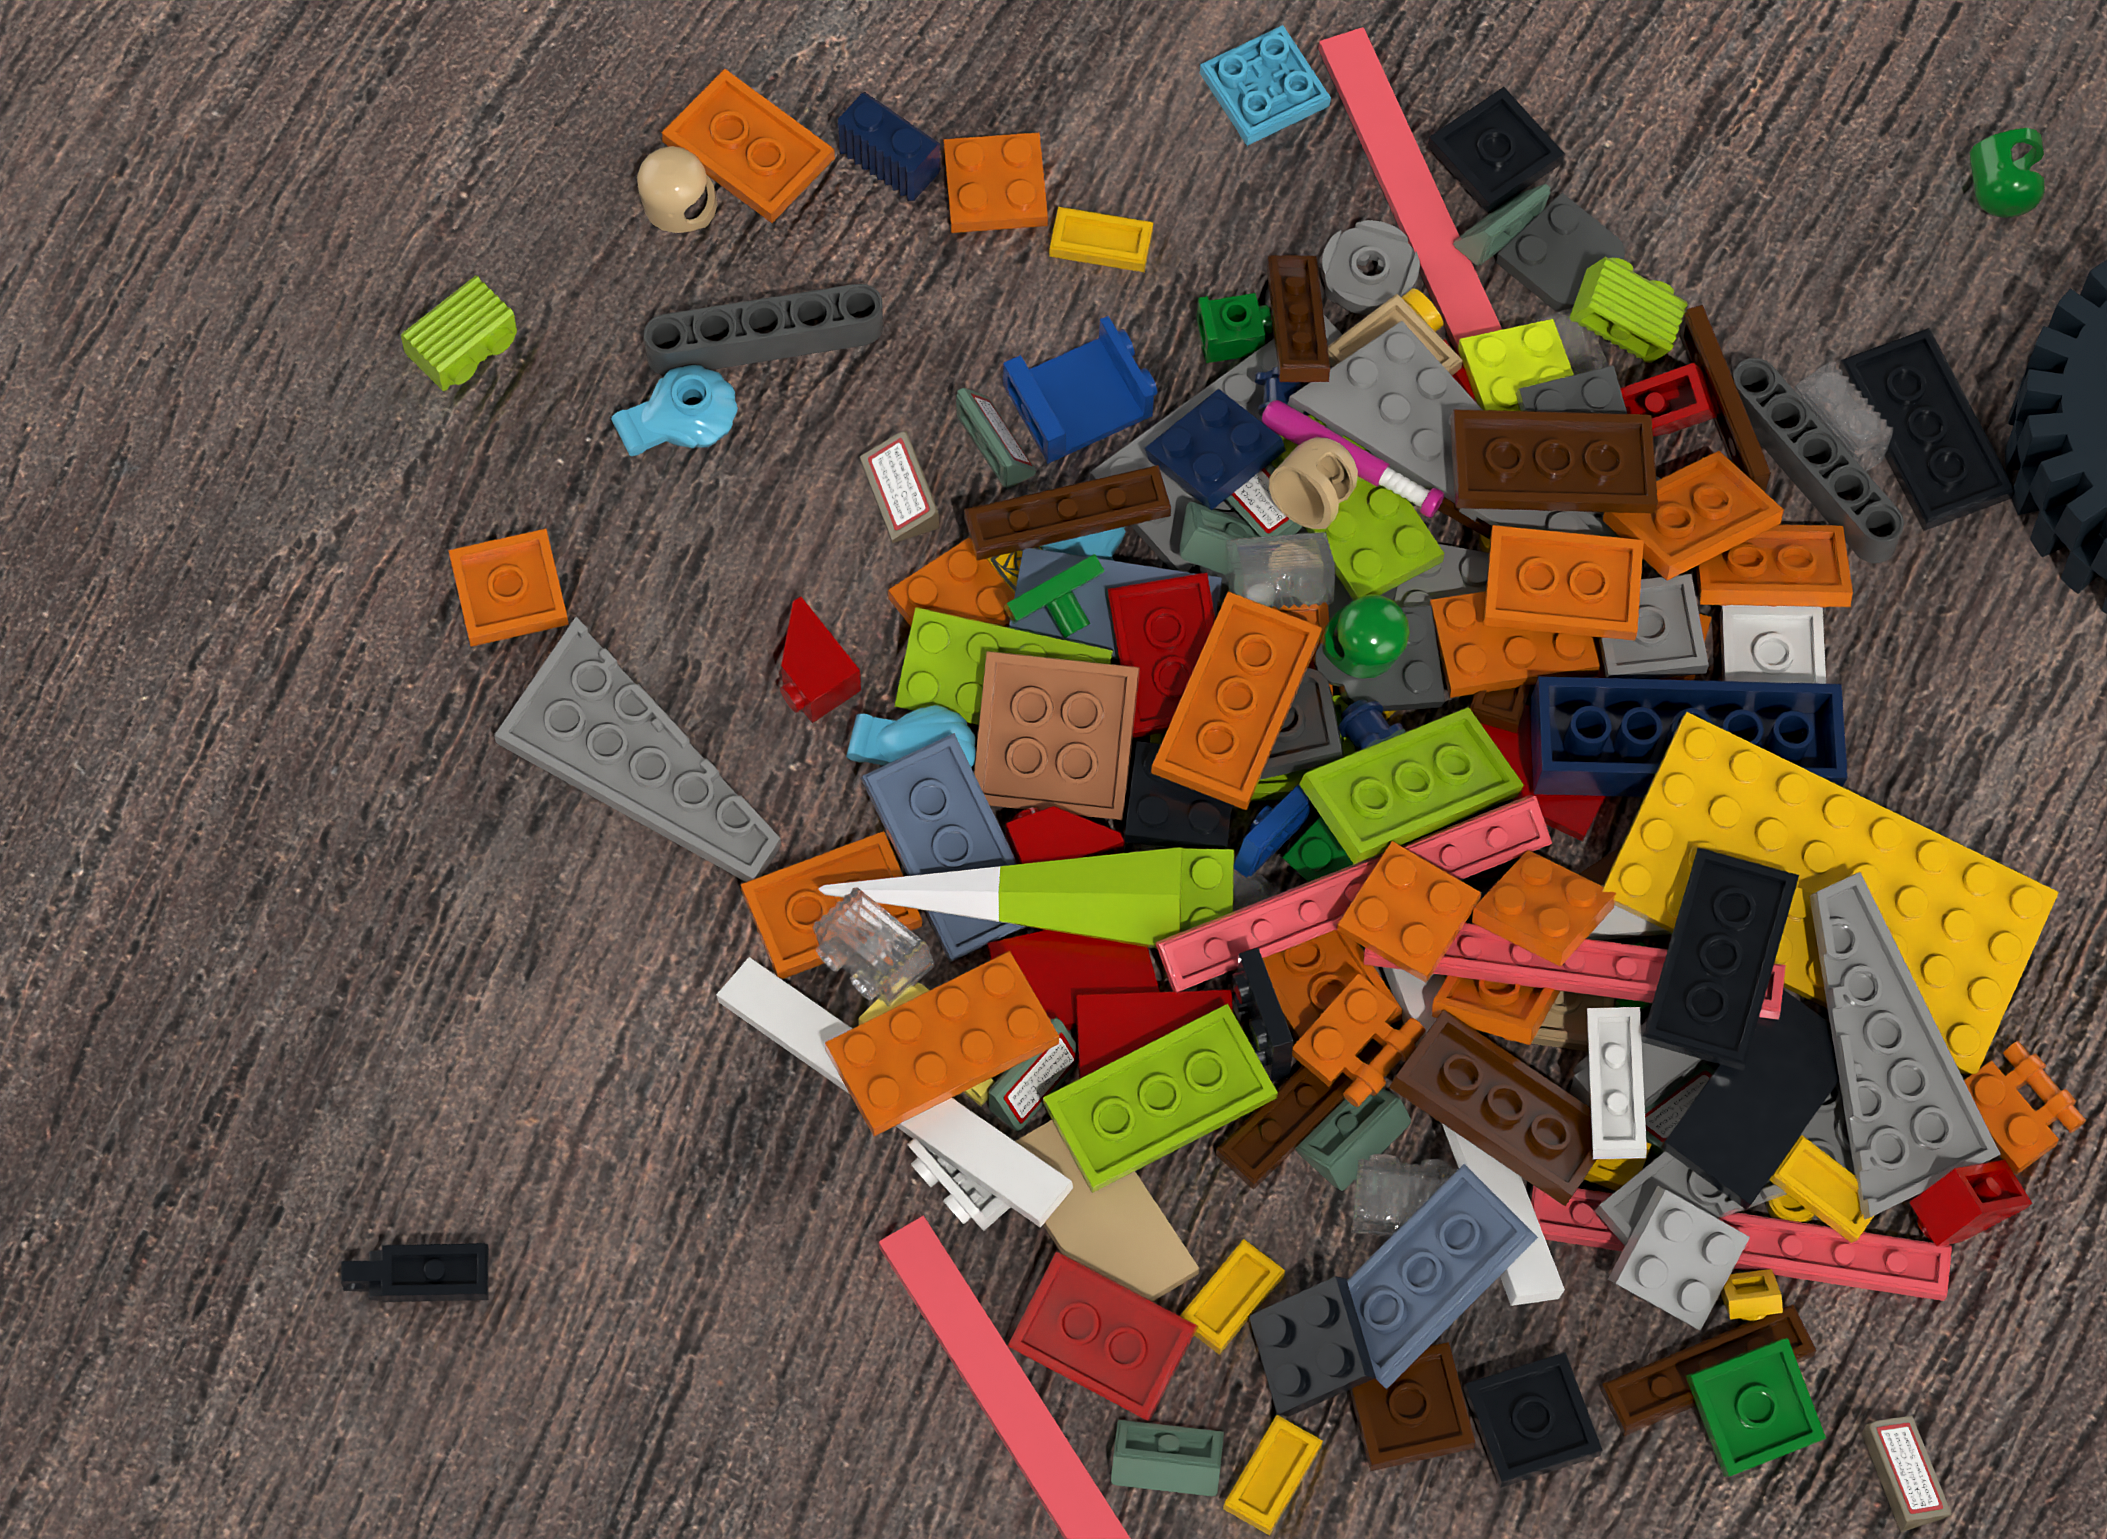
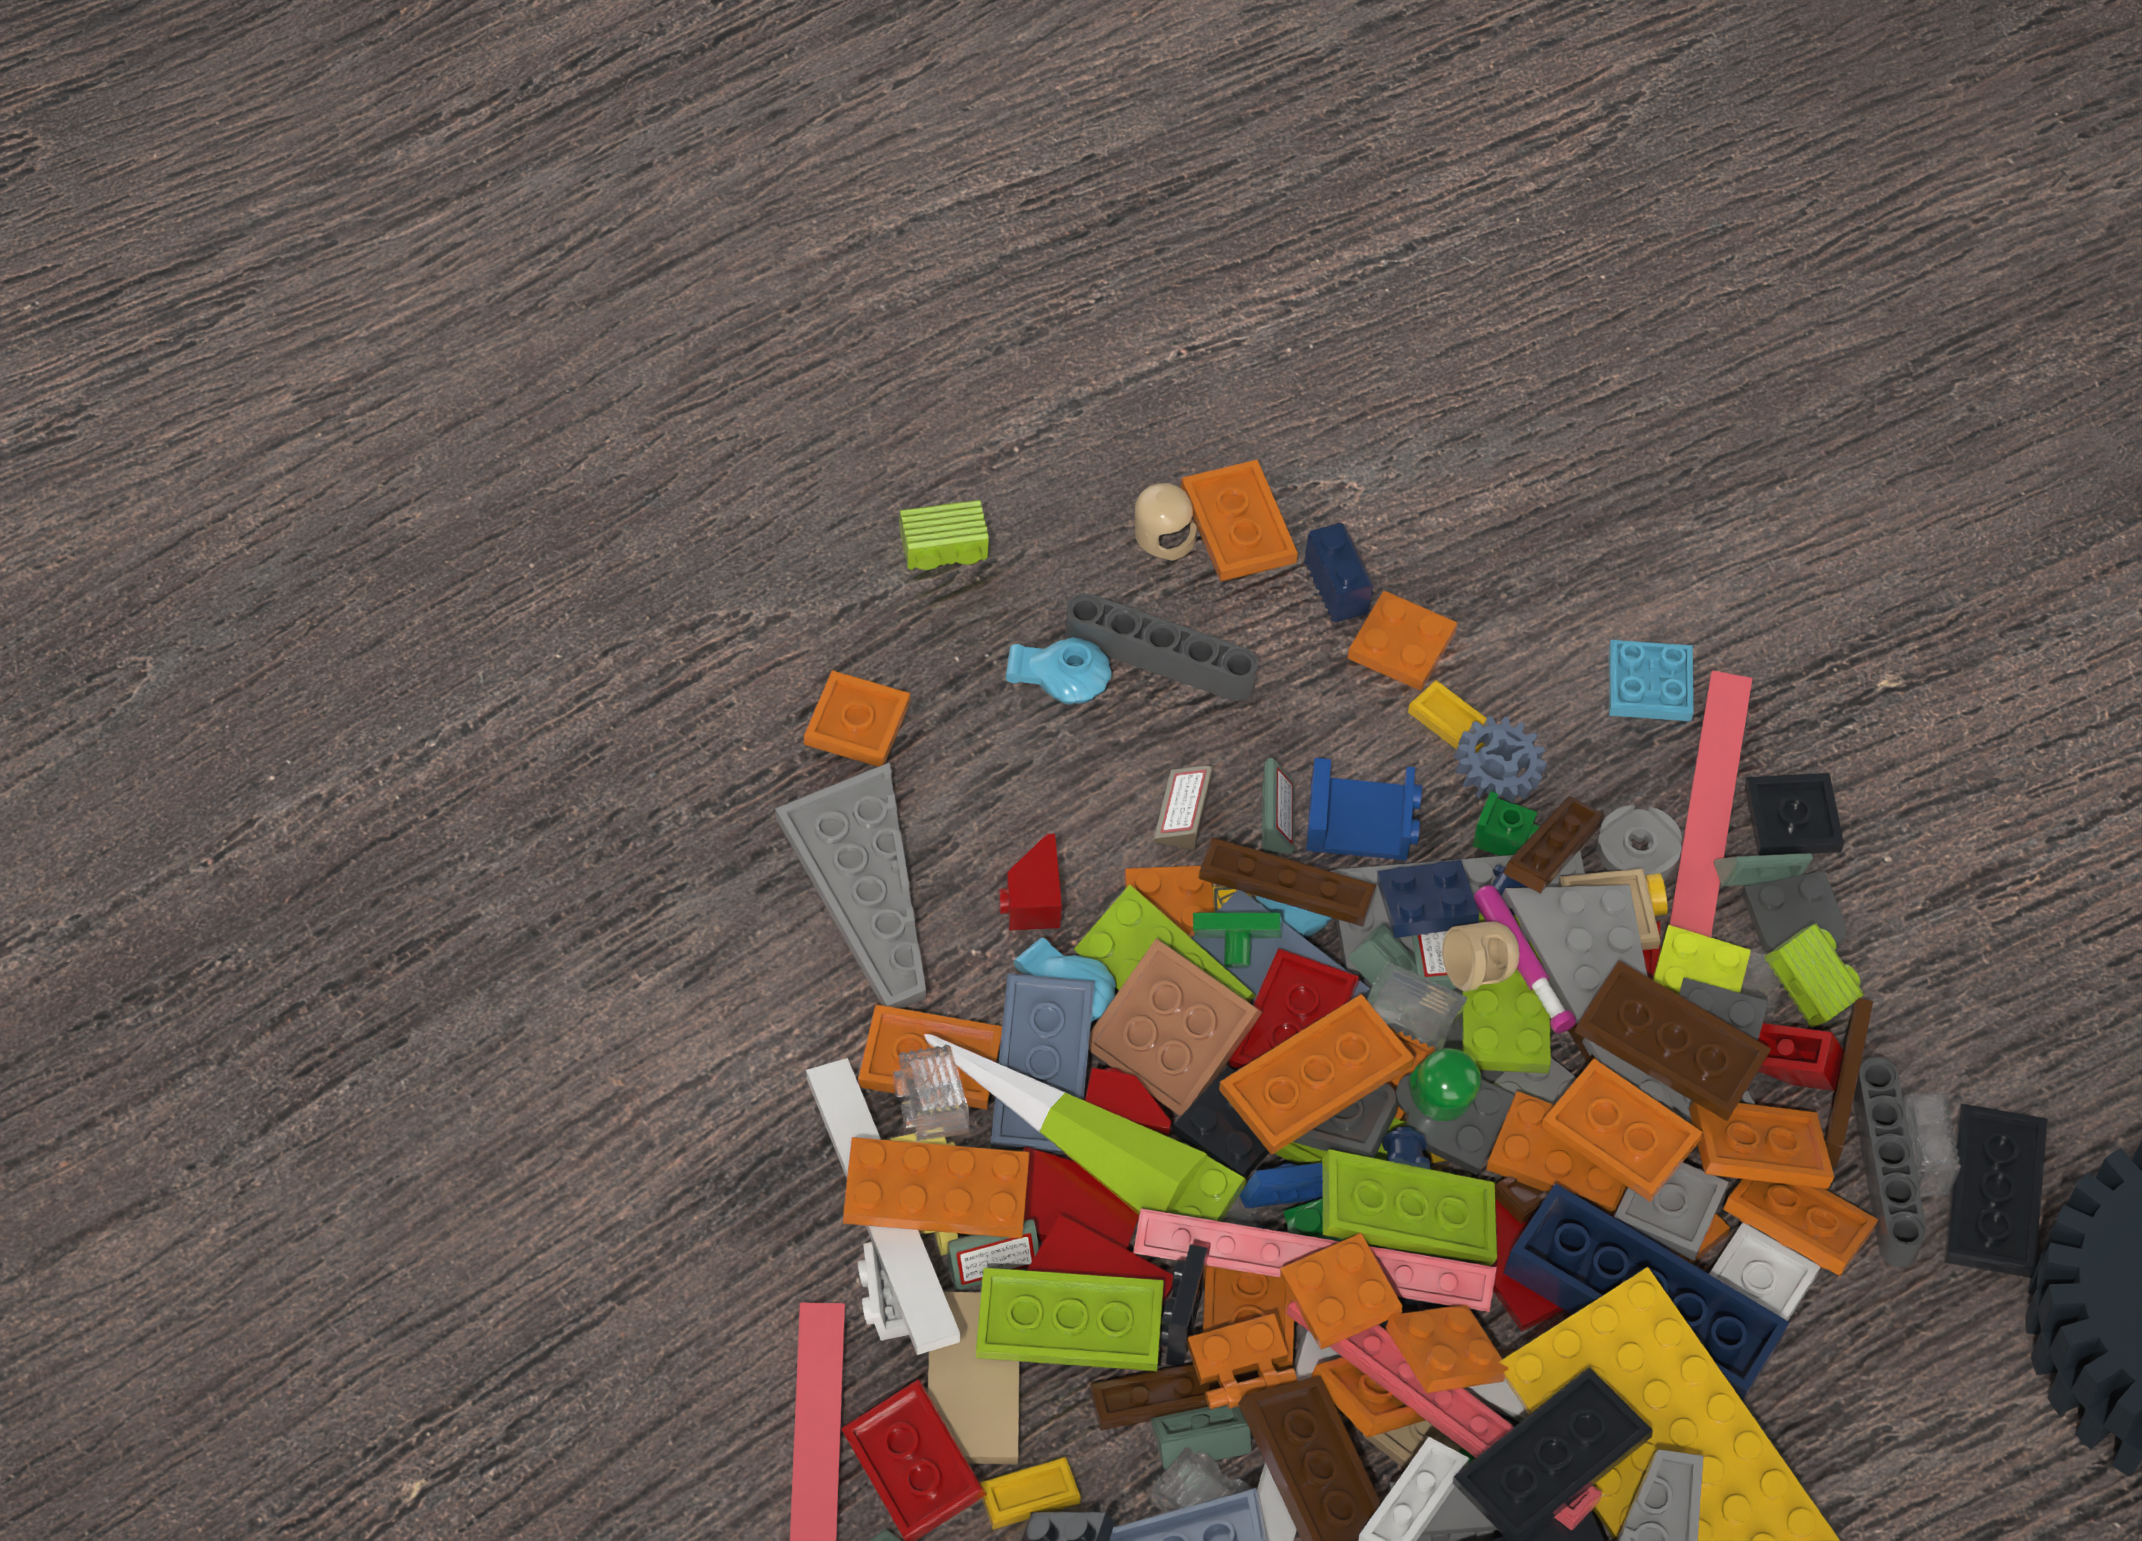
camera: 30 degrees right, 10 degrees down
(421, 1273) = (467, 1135): black hinge -> none
(1174, 240) = (1500, 759): none -> sand blue gear

